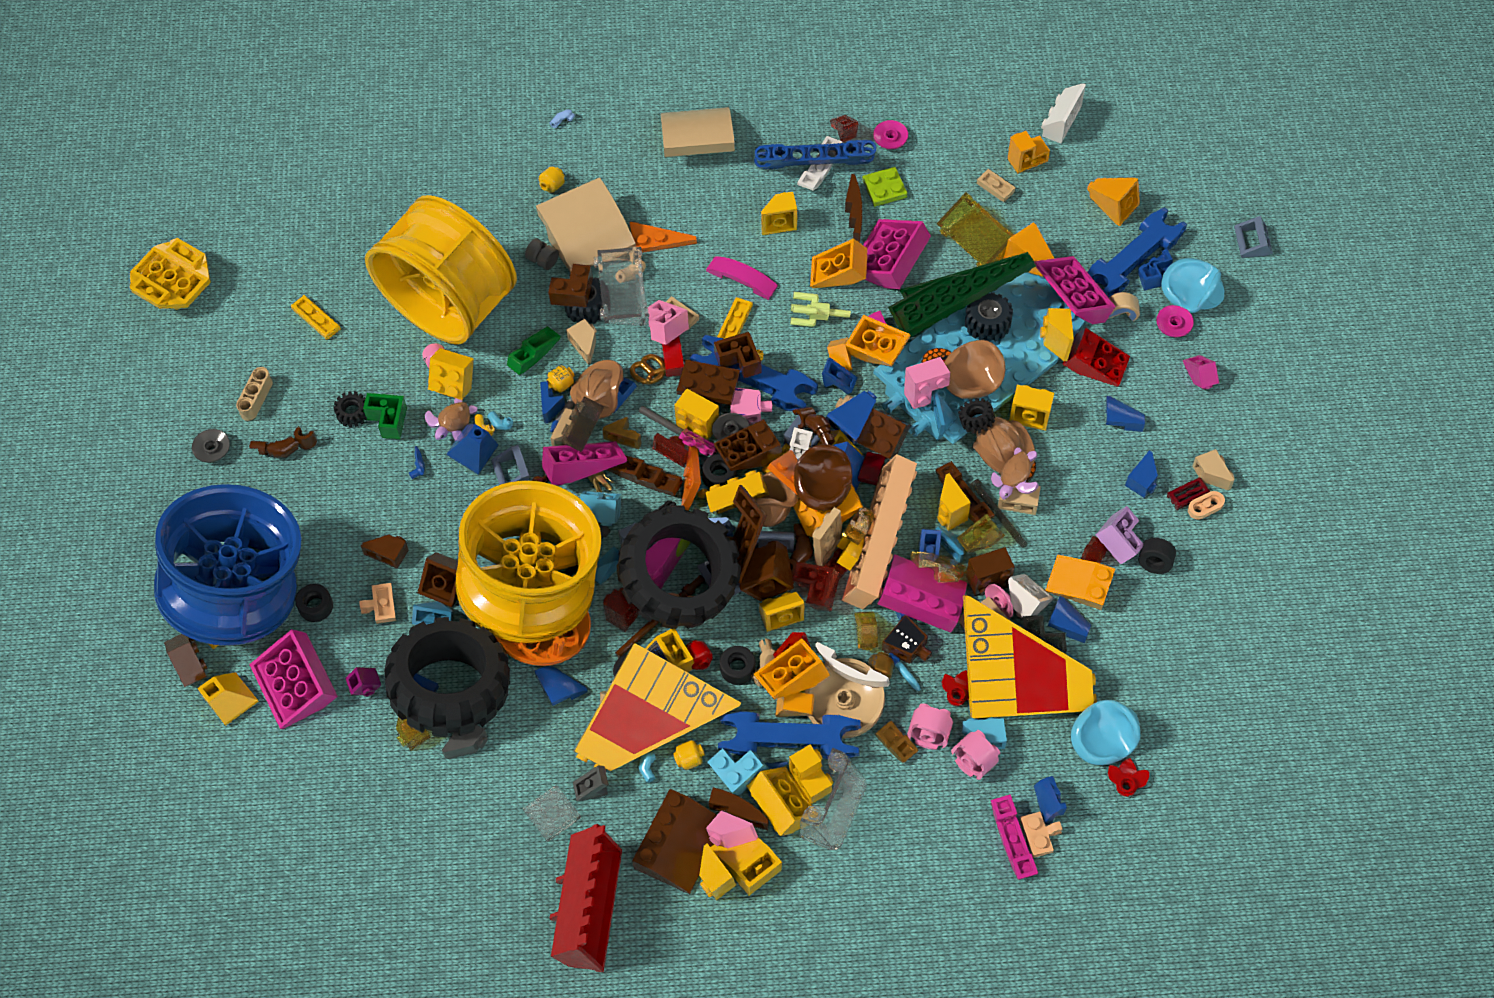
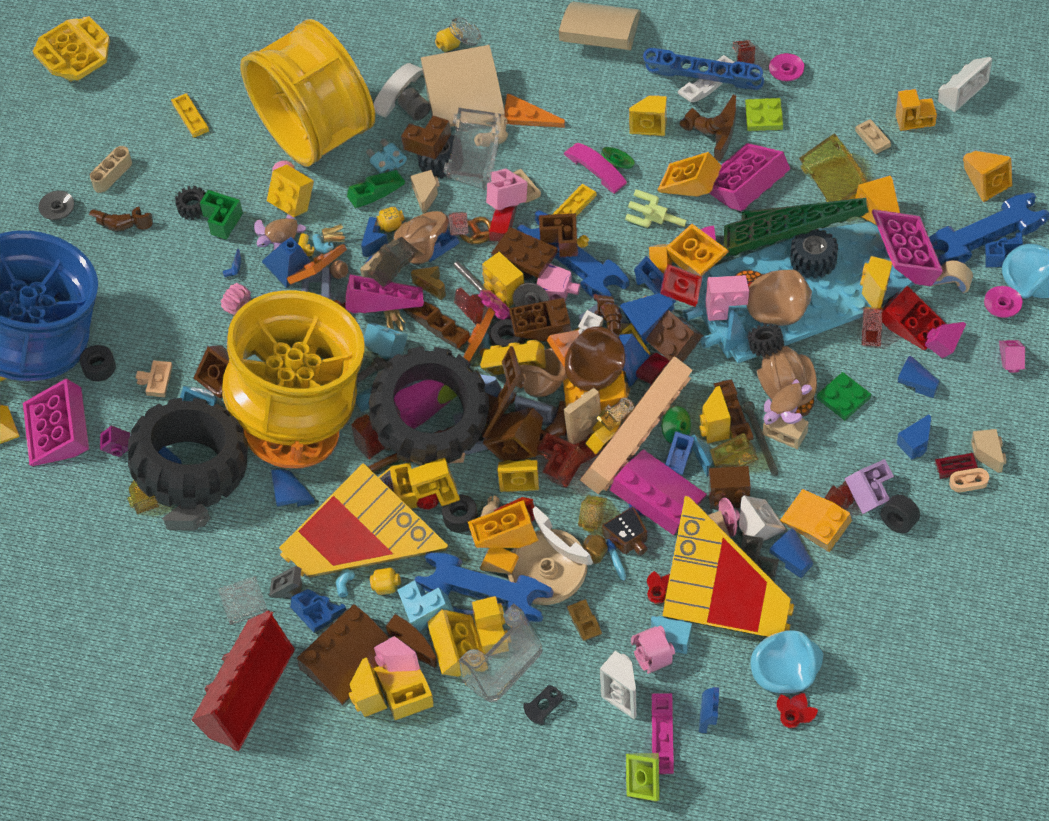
camera: 20 degrees right, 5 degrees down
(386, 549) = (178, 332): reddish brown slope -> none
(434, 500) = (235, 298): none -> bright pink gear
(505, 444) = (317, 265): none -> orange wing
(507, 408) = (330, 234): none -> pearl gold piece
(517, 236) = (394, 87): none -> white slope
(526, 443) = (339, 269): none -> medium nougat plate
(535, 317) = (388, 158): none -> medium azure piece
(566, 168) = (464, 31): none -> clear tile
(629, 803) = (315, 609): none -> blue slope
(631, 366) = (458, 223): none -> clear red slope
(706, 640) = (434, 478): none -> yellow brick
(762, 263) = (617, 158): none -> green dish
(833, 210) = (706, 125): none -> reddish brown piece
(877, 380) = (681, 285): none -> red tile
(883, 850) = (532, 709): none -> black piece
(915, 520) = (675, 420): none -> green dish
(930, 727) = (619, 613): bright pink brick -> none
(944, 568) = (685, 472): clear yellow slope -> none
(962, 800) = (619, 683): none -> white slope
(1014, 886) = (642, 775): none -> lime slope
(1031, 406) = (827, 347): yellow brick -> none
(1038, 834) = (688, 739): light nougat plate -> none
(1060, 451) = (843, 396): none -> green plate
(1064, 375) = (872, 326): none -> clear red slope
(1136, 371) = (945, 338): none -> dark pink slope

